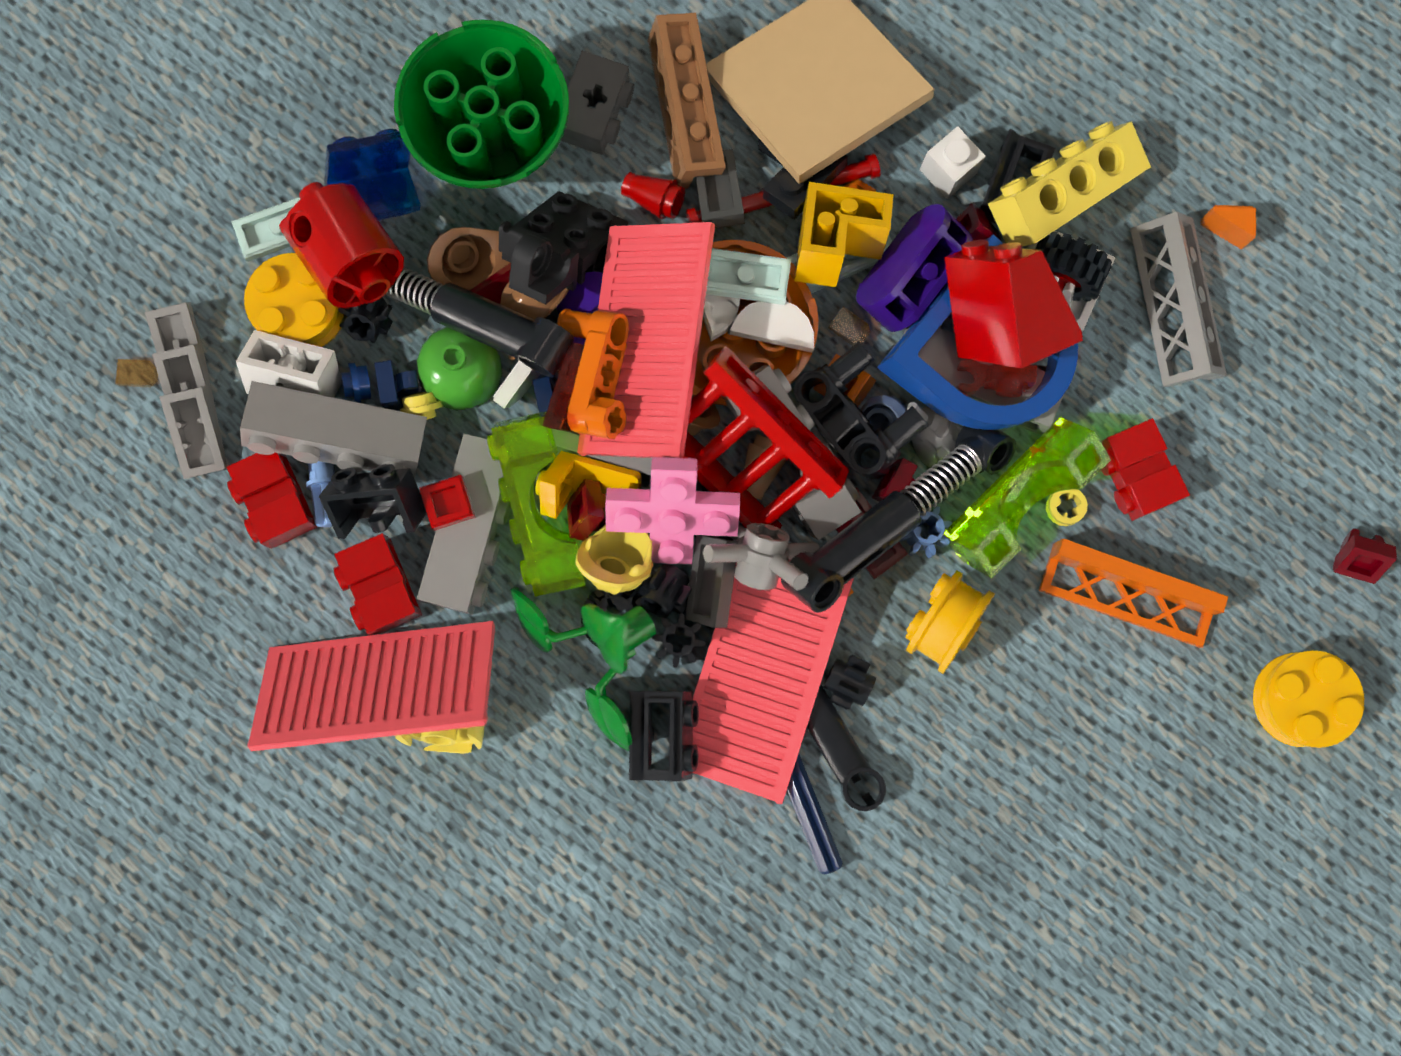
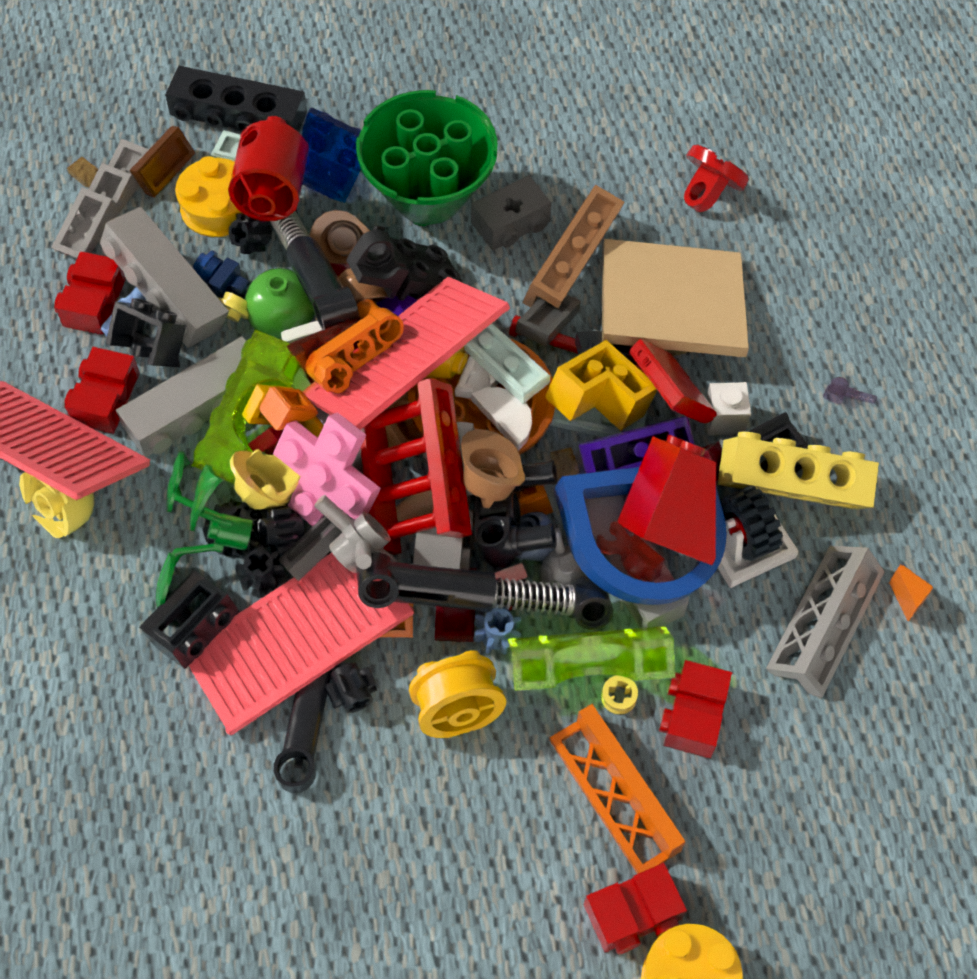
camera: 40 degrees right, 20 degrees down
(197, 178) = (231, 100): none -> black brick
(206, 303) = (162, 161): none -> reddish brown tile
(289, 365) = (176, 222): white brick -> none
(447, 502) = (190, 365): red tile -> none
(584, 480) = (285, 406): none -> orange slope
(655, 194) = (504, 289): red cone -> none
(813, 820) = (241, 764): dark blue axle -> none
(822, 394) = (490, 466): none -> medium nougat piece
(897, 178) = (672, 382): none -> red piece
(1026, 65) = (840, 388): none -> clear purple hand
(1224, 679) = (635, 909): none -> red brick
(1364, 557) = (825, 907): dark red tile -> none

